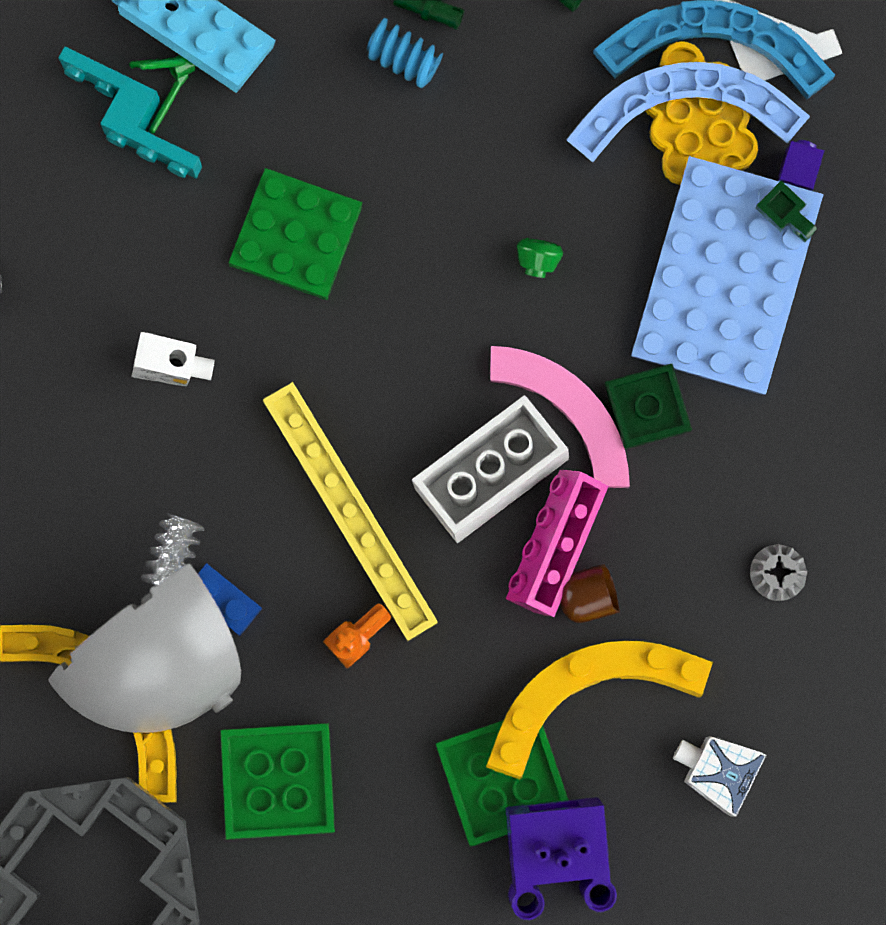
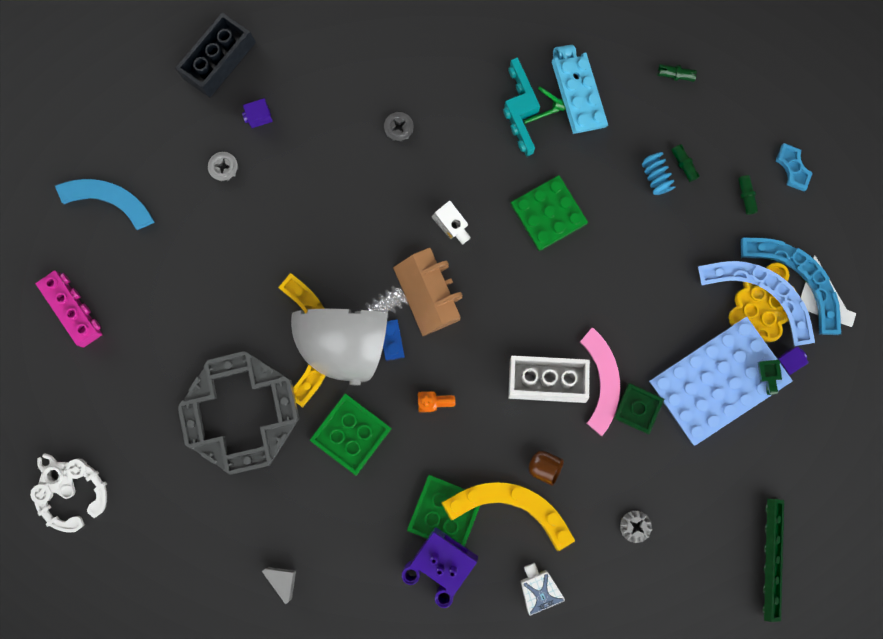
camera: 45 degrees right, 0 degrees up
(217, 487) = (428, 291): none -> medium nougat piece
(350, 511) = (474, 348): light yellow plate -> none
(538, 256) = (644, 306): green cone -> none
(556, 542) = (551, 433): dark pink brick -> none

